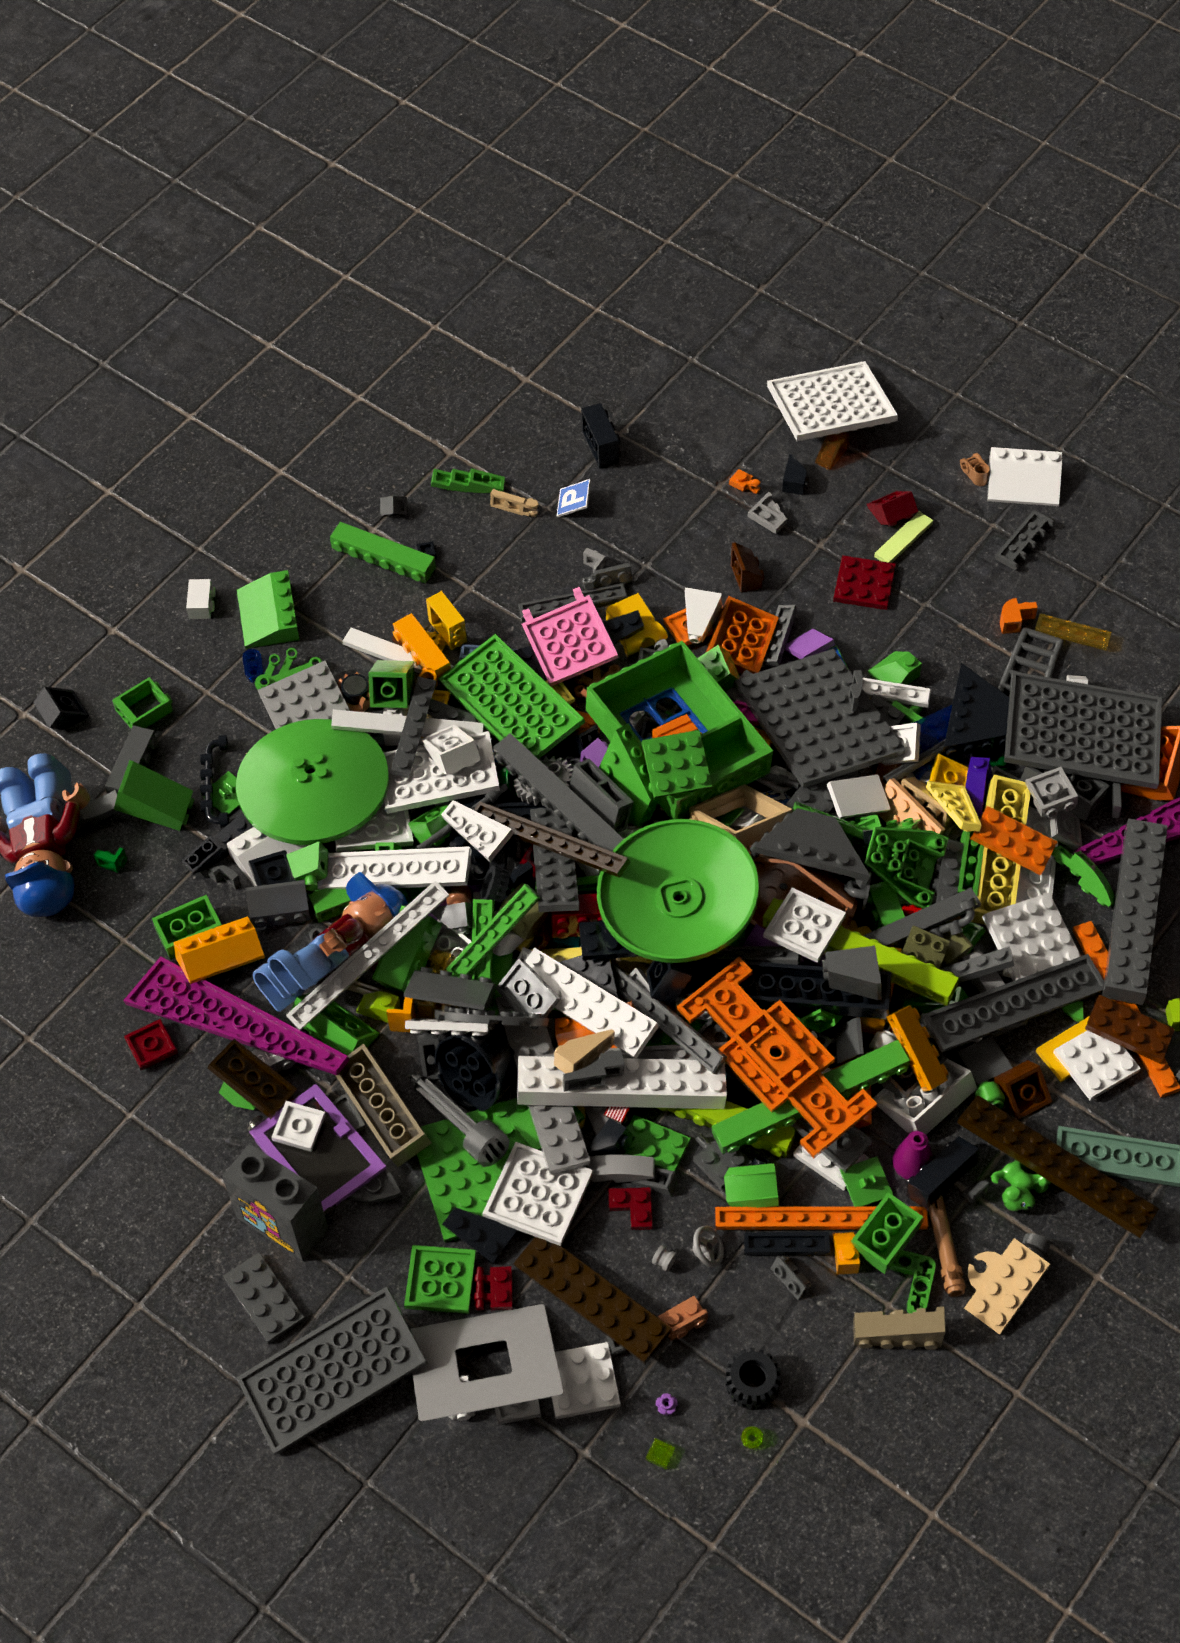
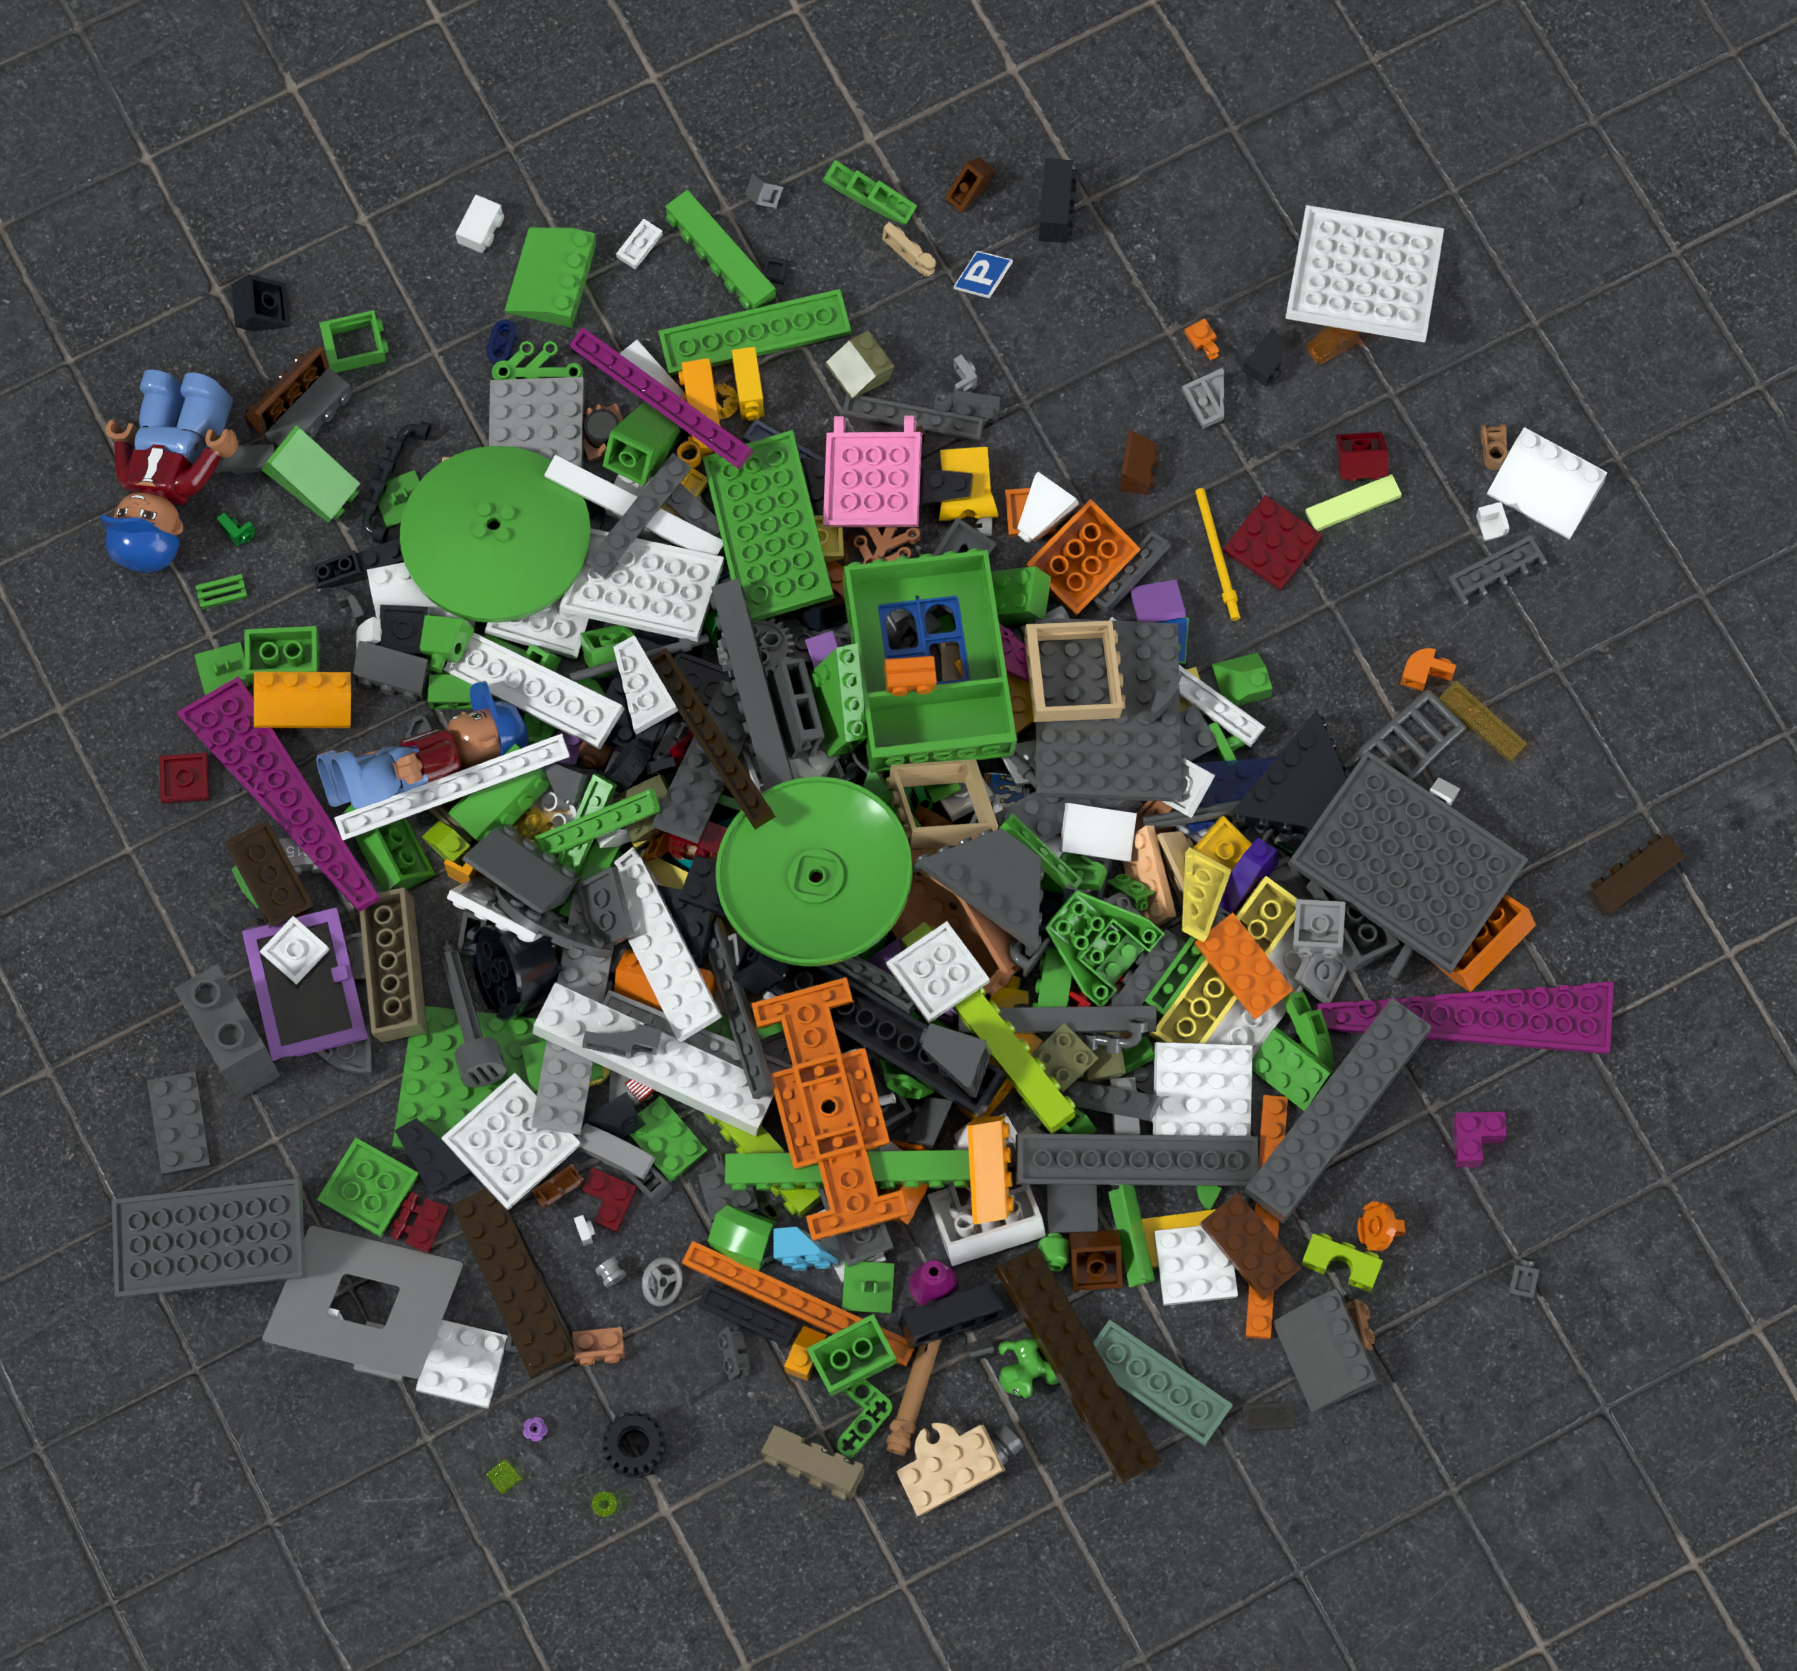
camera: 25 degrees right, 15 degrees up
(108, 752) = (286, 390): none -> reddish brown slope
(118, 904) = (221, 583): none -> bright green tile
(142, 957) = (221, 666): none -> bright green piece
(248, 879) = (369, 631): none -> white slope
(322, 569) = (639, 244): none -> white plate
(390, 650) = (661, 398): none -> magenta plate
(451, 579) = (765, 328): none -> bright green plate
(451, 749) = (665, 564): white slope -> none
(520, 581) = (860, 365): none -> slope
(534, 450) = (970, 183): none -> reddish brown slope
(582, 1051) = (620, 1011): tan slope -> none
(589, 1213) = (557, 1186): none -> reddish brown hinge
(627, 1236) = (585, 1230): none -> white plate
(676, 764) = (890, 715): bright green plate -> none
(744, 690) = (1067, 631): none -> tan window
(805, 1173) = (797, 1250): none -> medium azure slope
(853, 623) = (1229, 595): none -> yellow bar
(1003, 512) = (1492, 521): none -> white panel
(1029, 1050) = (1132, 1236): none -> bright green panel
(1084, 898) = (1290, 1068): none -> bright green plate

